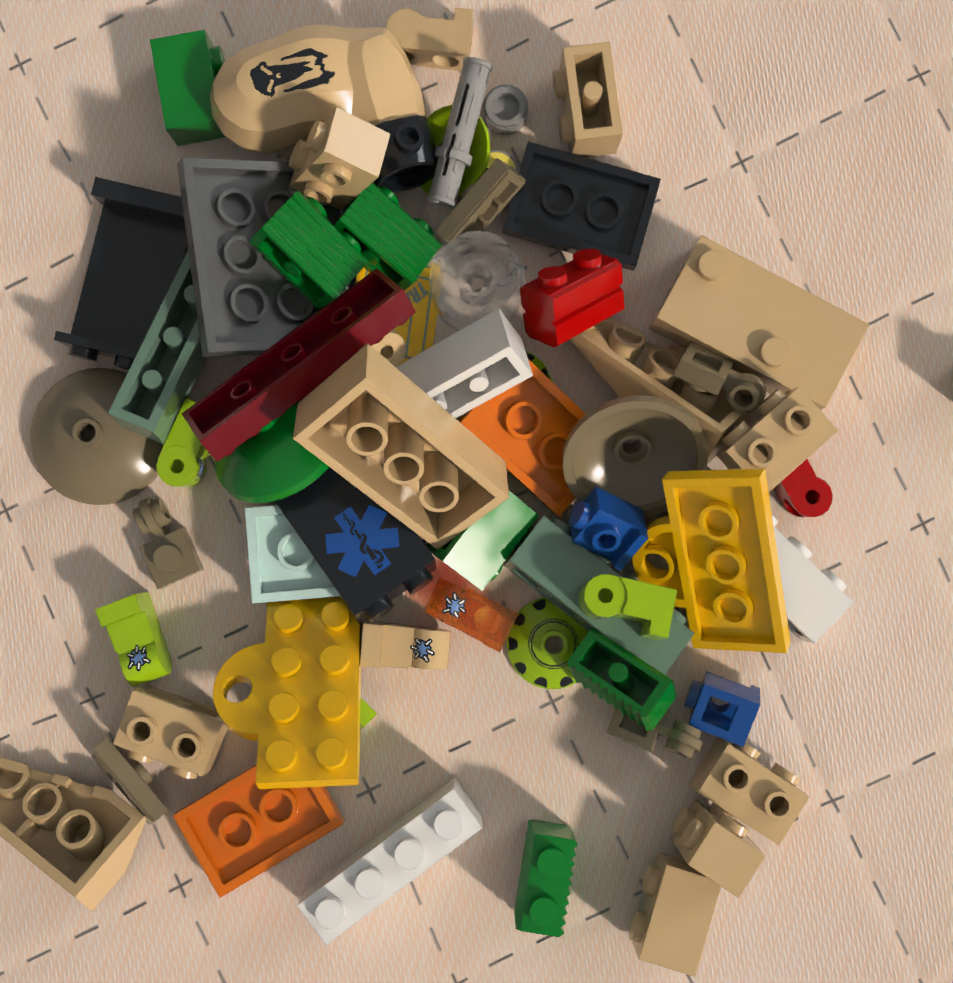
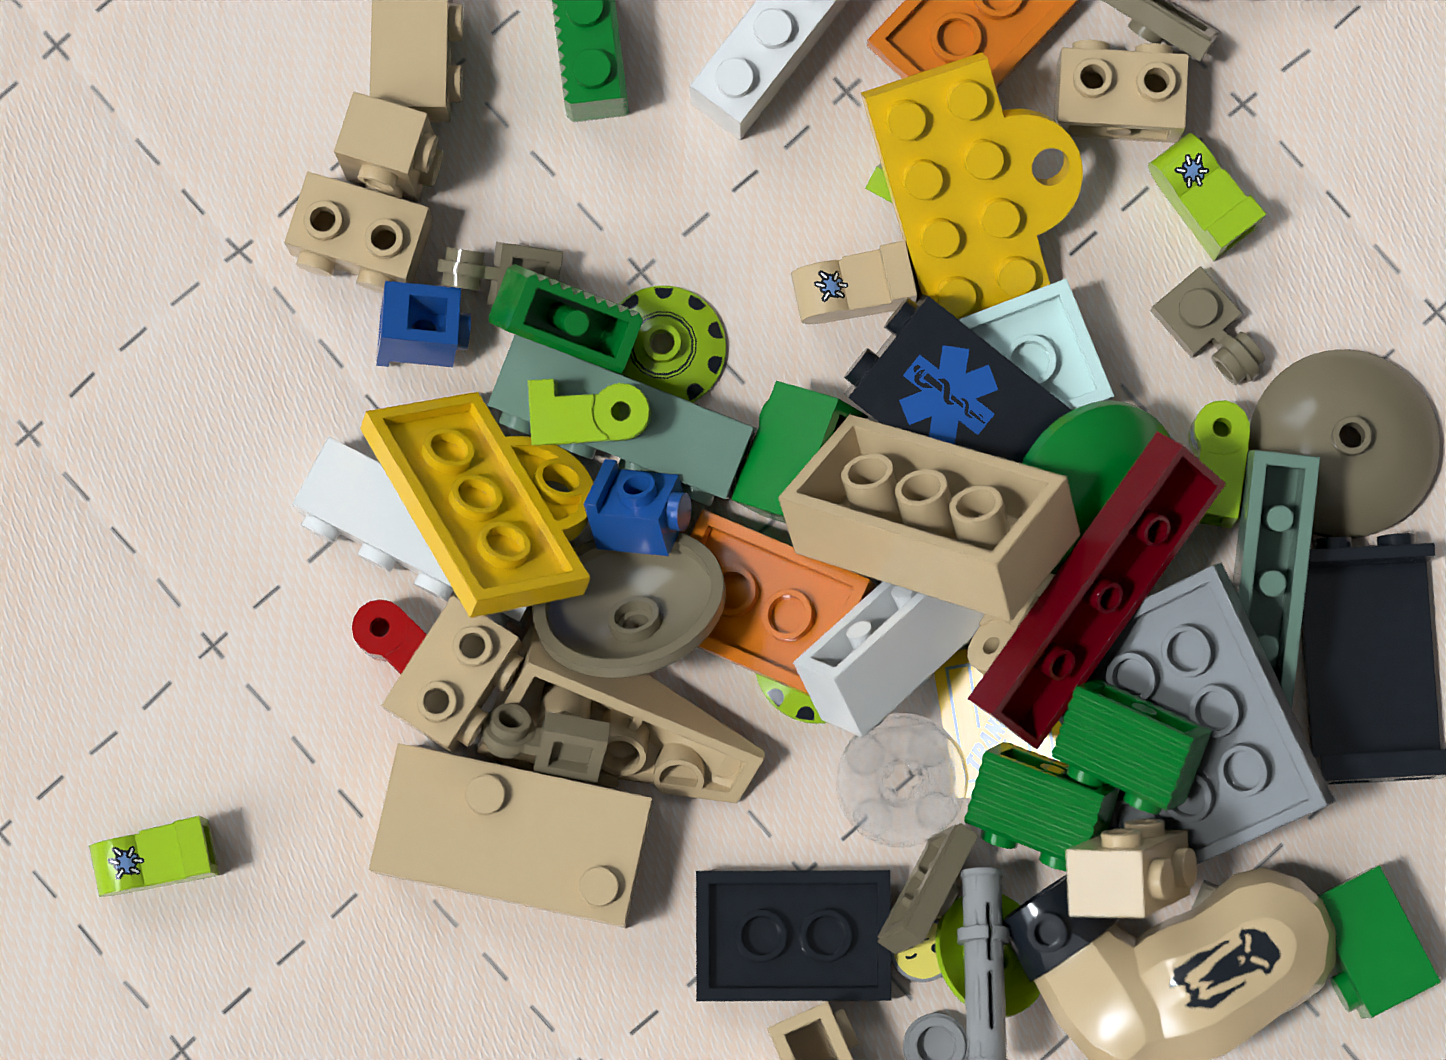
camera: 165 degrees right, 5 degrees down
(471, 613) = (781, 352): clear orange leg -> none
(572, 297) = (769, 793): red brick -> none

